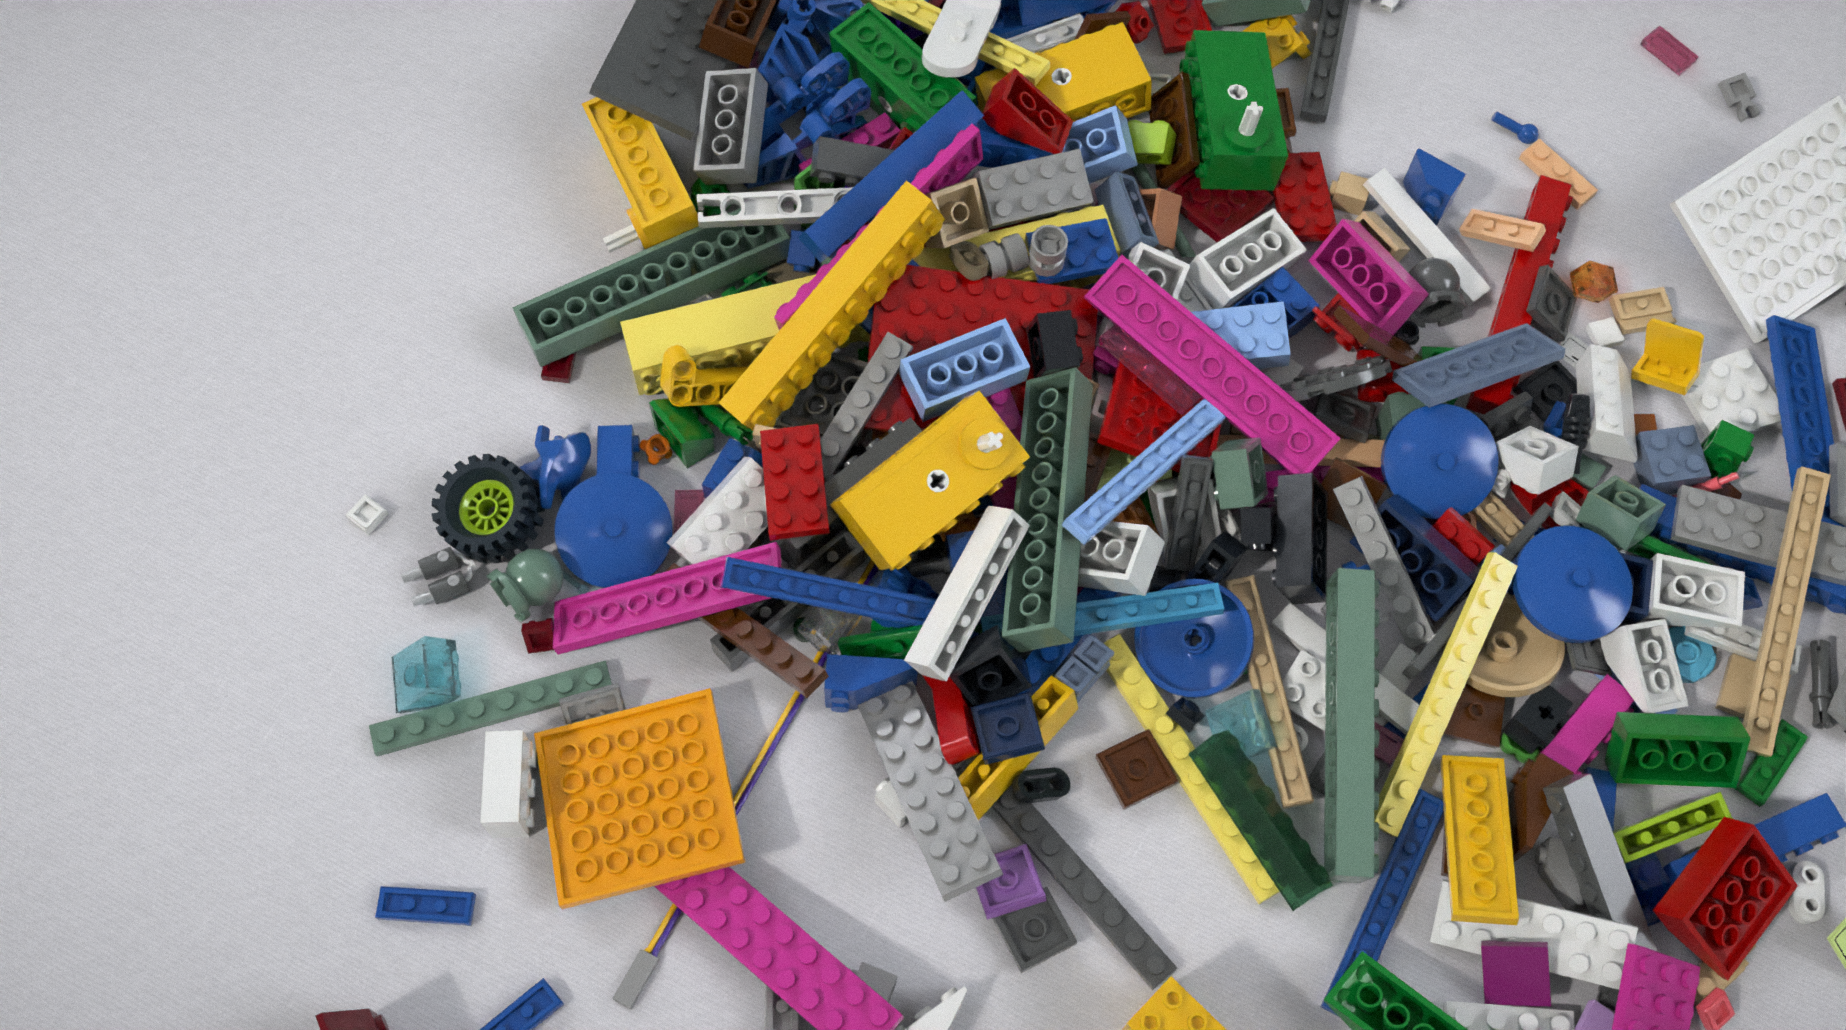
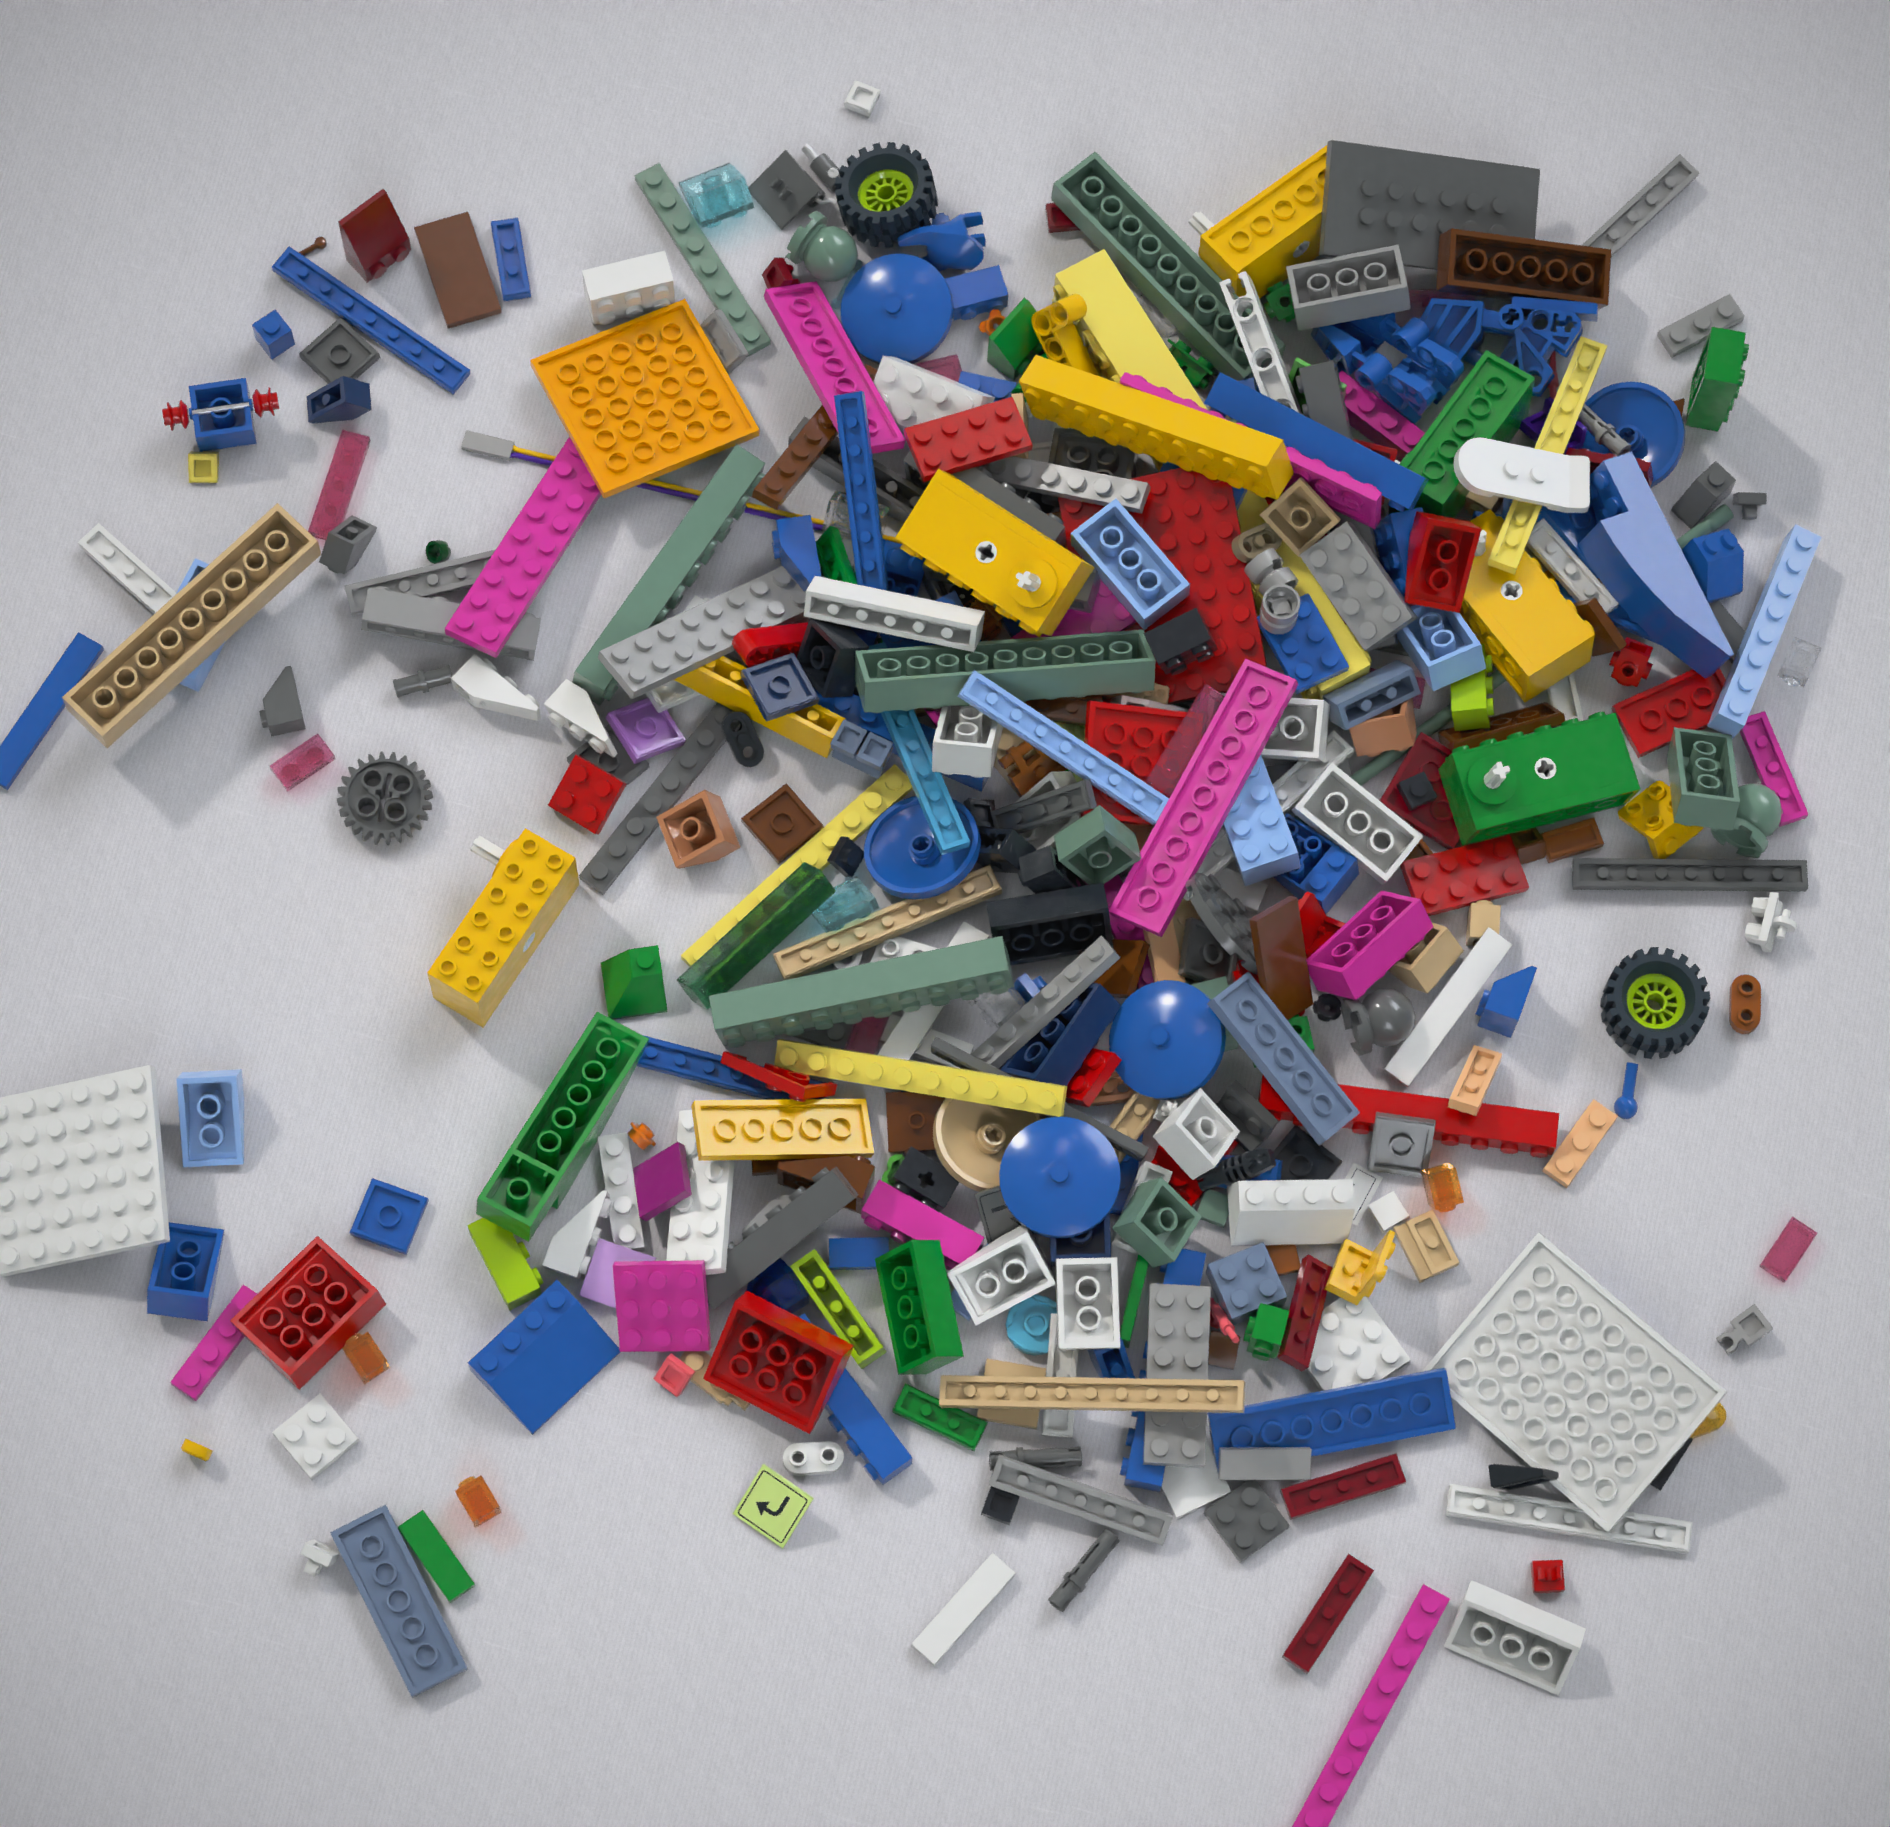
camera: 75 degrees right, 5 degrees up
(419, 966) = (457, 270): none -> reddish brown tile
(444, 607) = (783, 189): none -> dark grey piece
(847, 815) = (675, 565): none -> sand green brick
(977, 945) = (575, 710): none -> white slope
(1069, 958) = (587, 794): none -> red plate
(1133, 853) = (698, 830): none -> nougat slope
(1221, 207) = (1416, 791): none -> black plate
(1283, 957) = (634, 983): none -> green slope
(1419, 829) = (780, 1078): none -> red wing
(1446, 83) = (1672, 977): none -> black wheel
(1449, 26) = (1745, 1002): none -> dark orange plate
(1453, 986) = (641, 1135): none -> orange plate
(1702, 414) = (1305, 1313): none -> dark red plate

